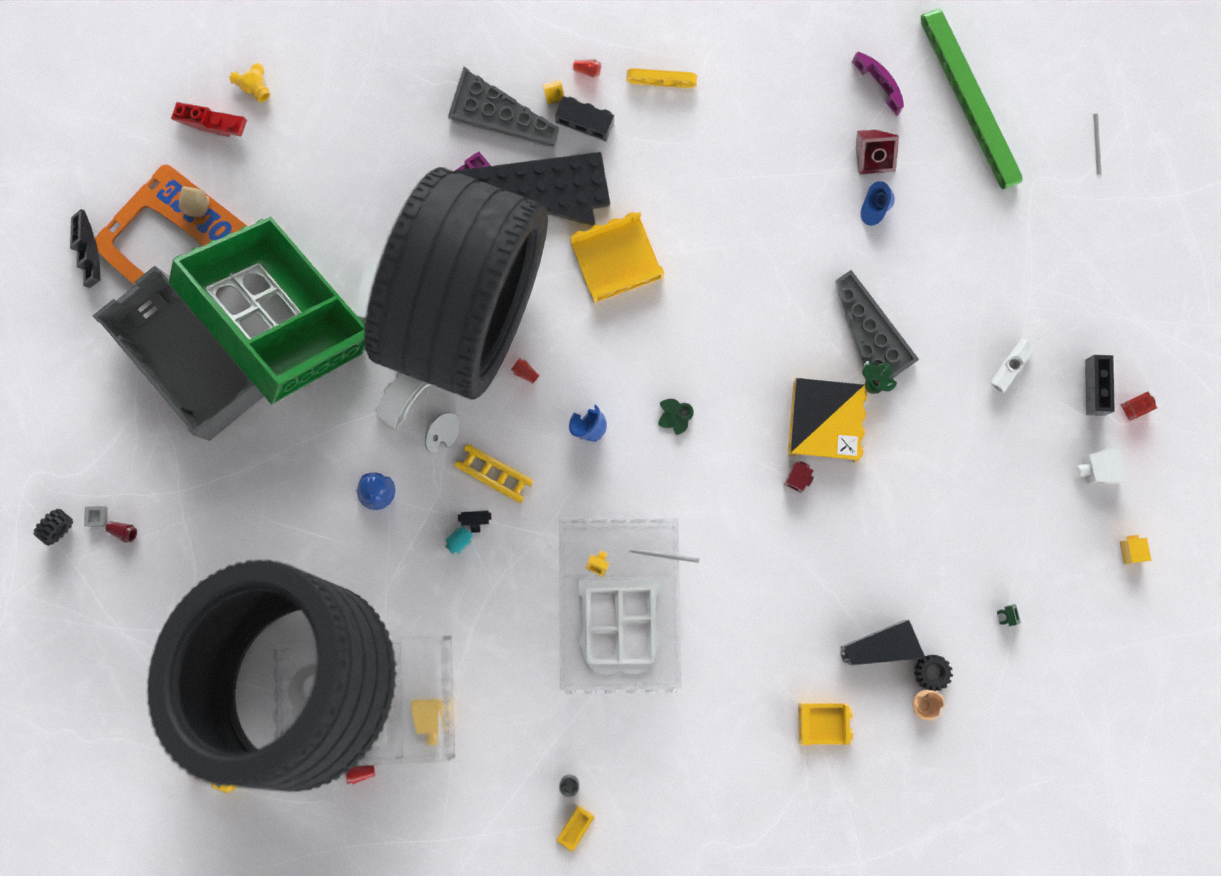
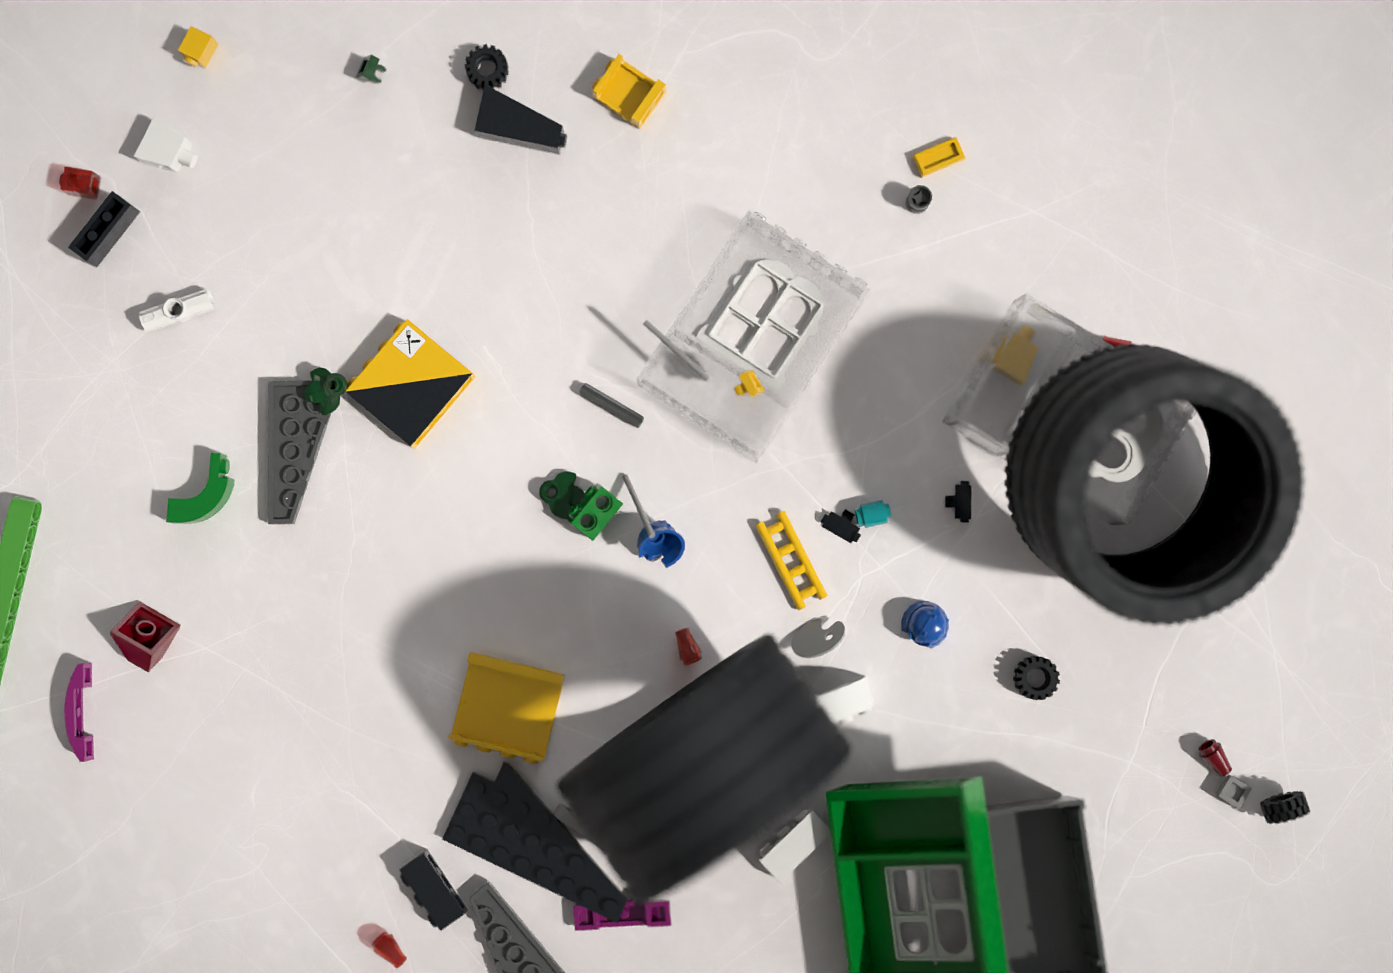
camera: 145 degrees left, 5 degrees up
(289, 504) = (1049, 685): none -> black tyre
(403, 590) = (961, 501): none -> black piece
(553, 92) = (446, 945): yellow tile -> none
(619, 438) = (638, 506): none -> light grey axle
(641, 417) = (599, 515): none -> green brick
(661, 78) = (316, 880): yellow beam -> none
(684, 496) = (611, 405): none -> dark grey axle
(799, 476) = (480, 345): dark red brick -> none
(877, 203) = (188, 576): blue piece -> none
(898, 261) = (209, 501): none -> green arch
(928, 704) = (514, 41): light nougat hair -> none

